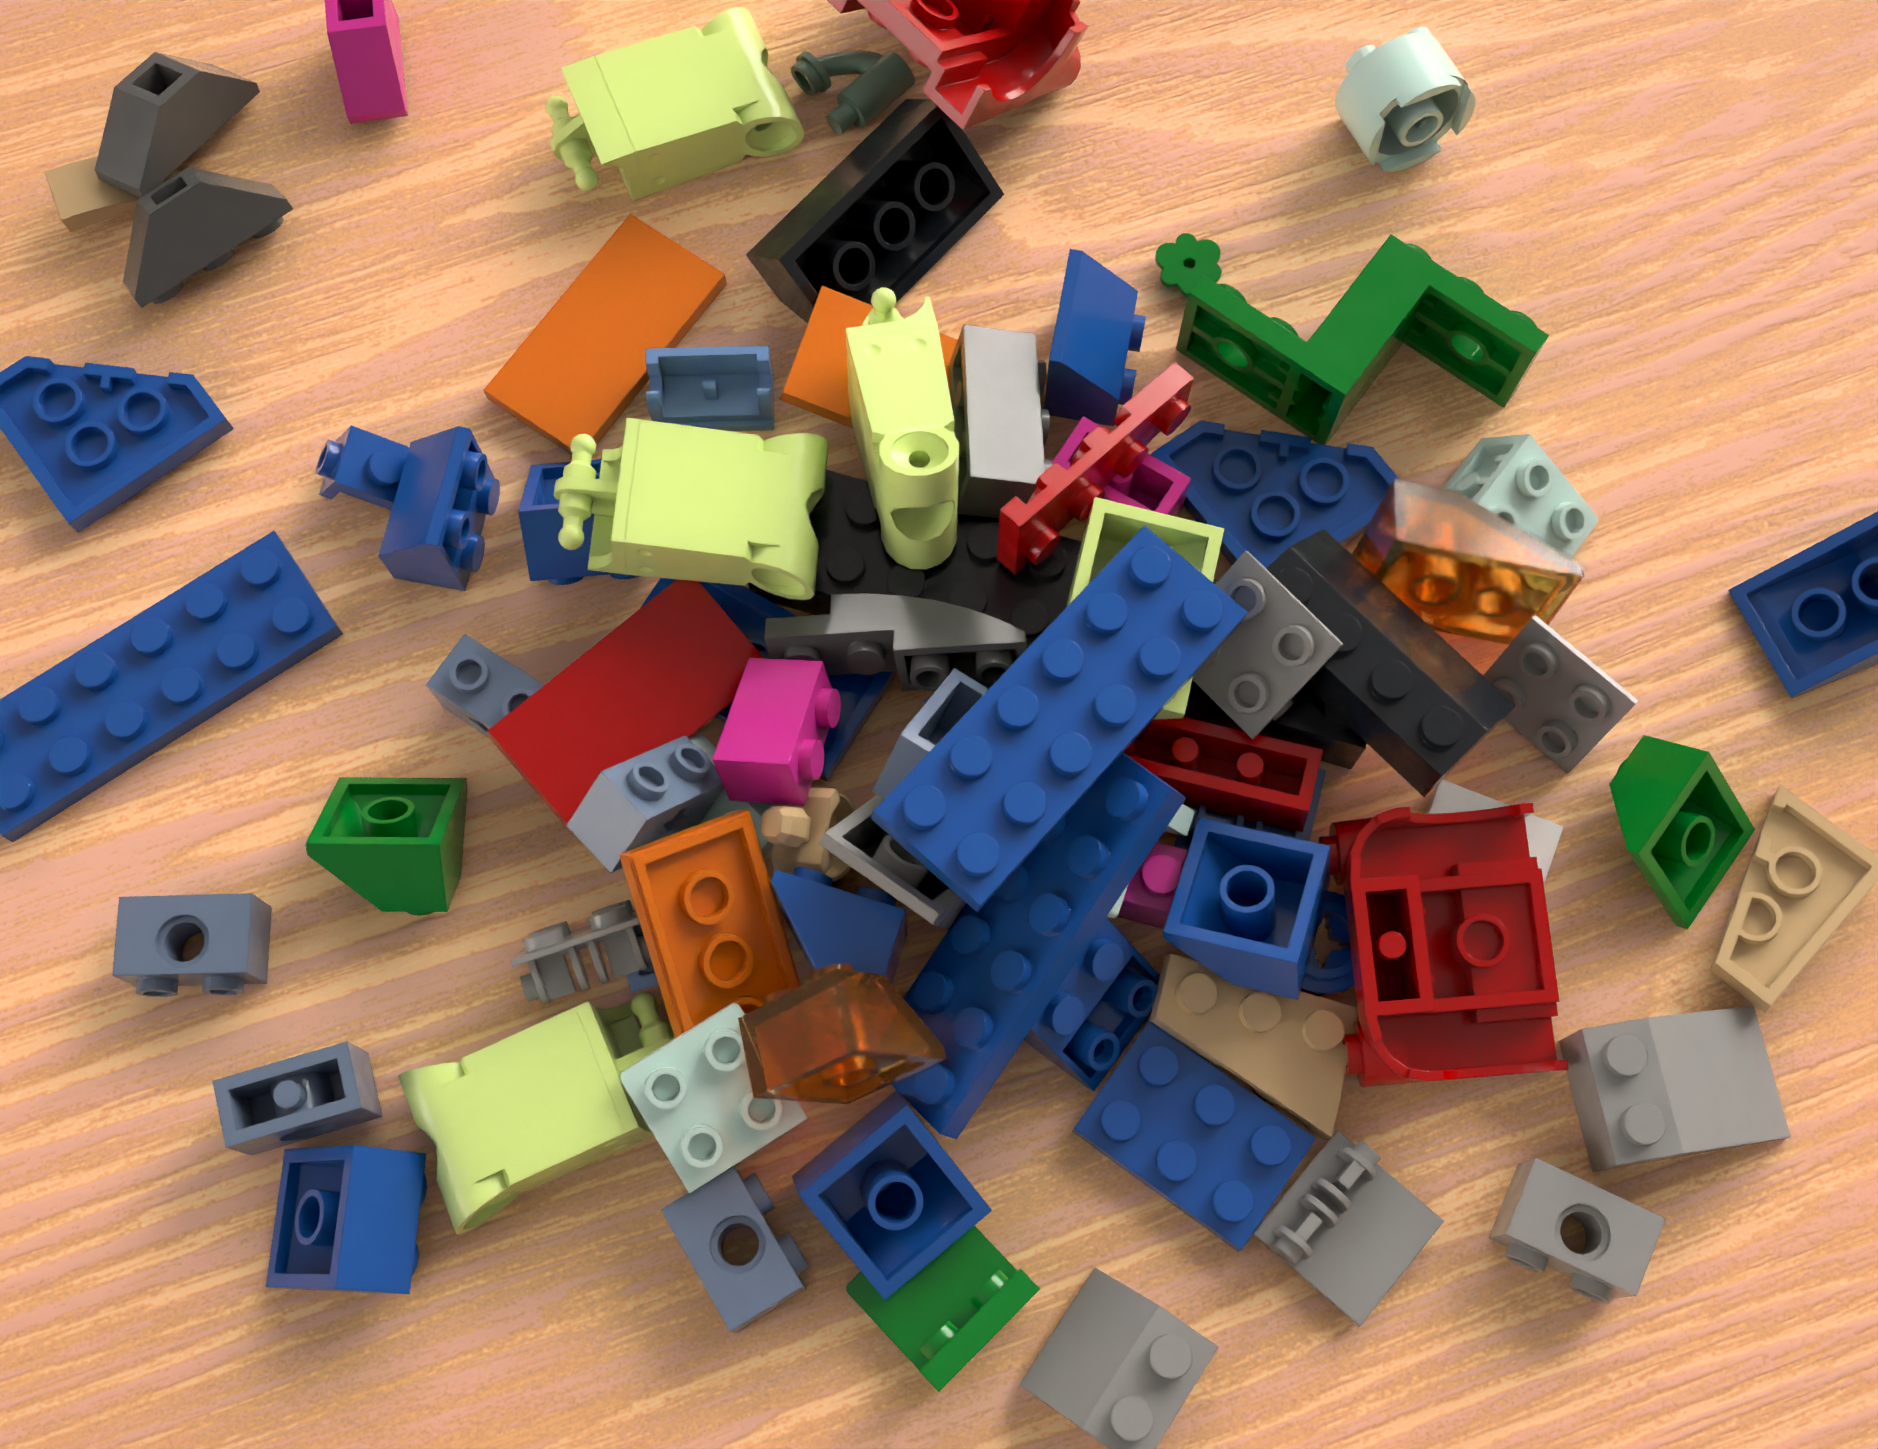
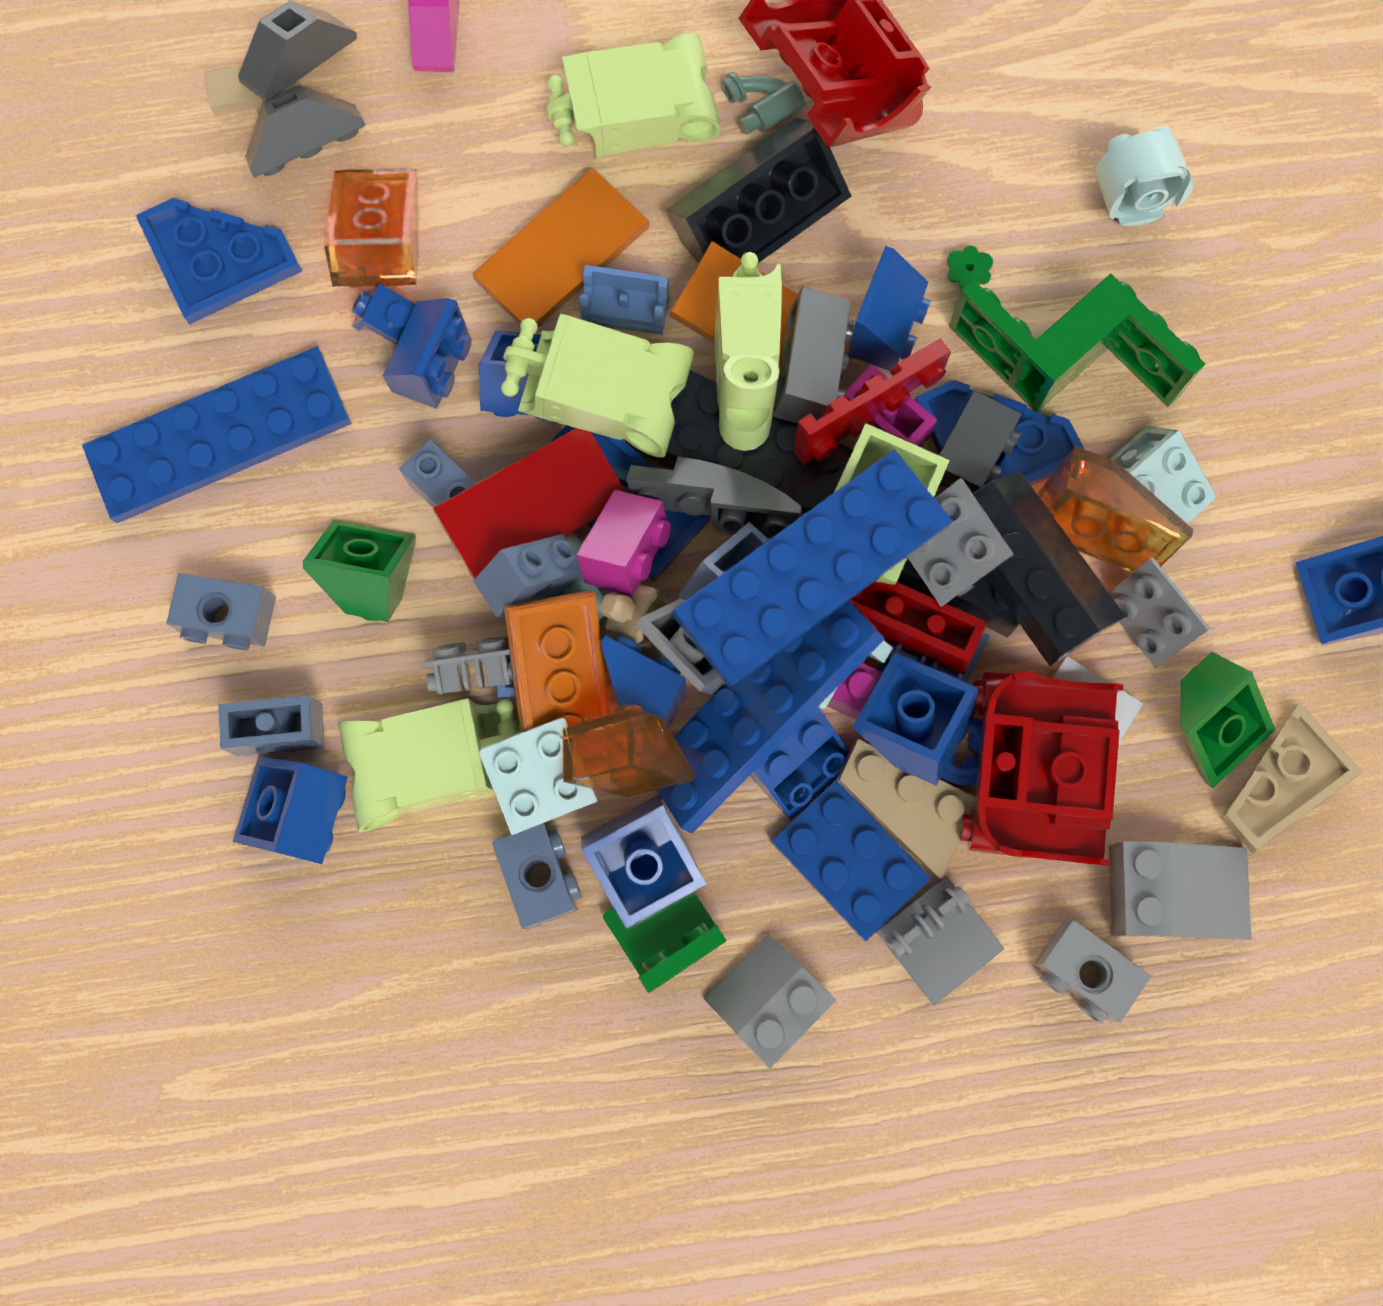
camera: 15 degrees right, 5 degrees up
(328, 350) = (373, 228): none -> clear orange slope
(1255, 496) = (978, 440): none -> dark grey brick

